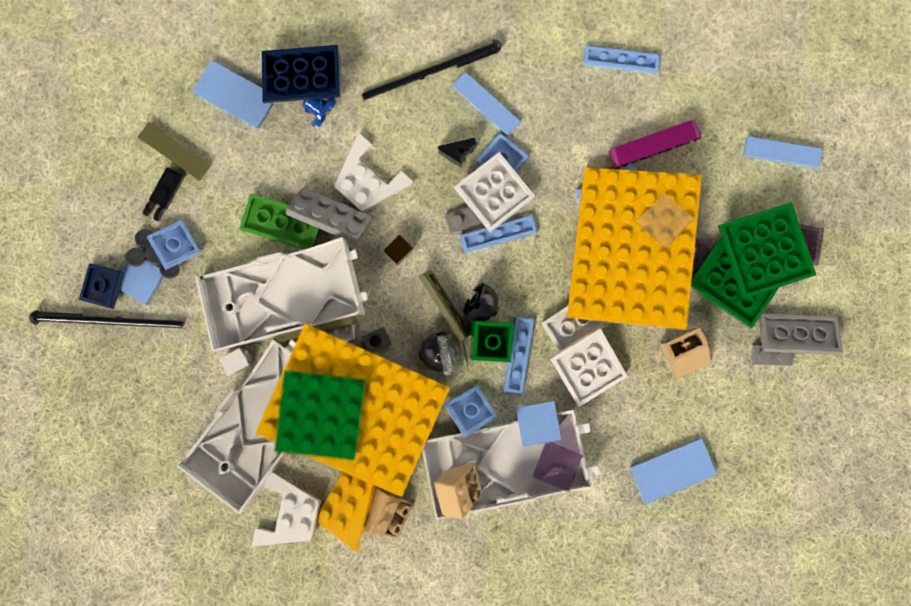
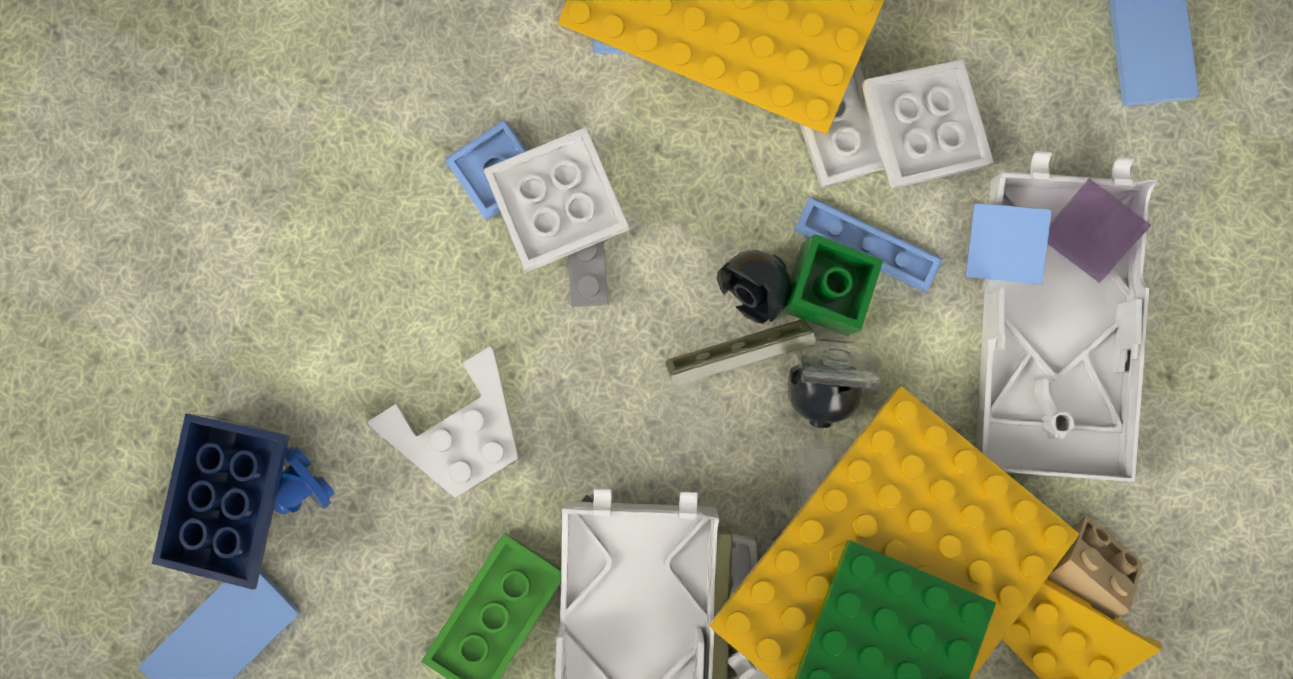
camera: 75 degrees left, 0 degrees up
(329, 215) = (508, 523): light grey plate -> none
(385, 340) = (771, 482): dark grey brick -> none
(398, 249) = (611, 409): dark brown panel -> none
(452, 150) = (453, 256): black slope -> none
(458, 490) = (1096, 424): tan slope -> none
(460, 61) = (287, 196): black bar -> none
(470, 411) = (949, 361): light blue tile -> none
(486, 104) = (383, 169): light blue tile -> none
(503, 233) = (634, 196): light blue tile -> none

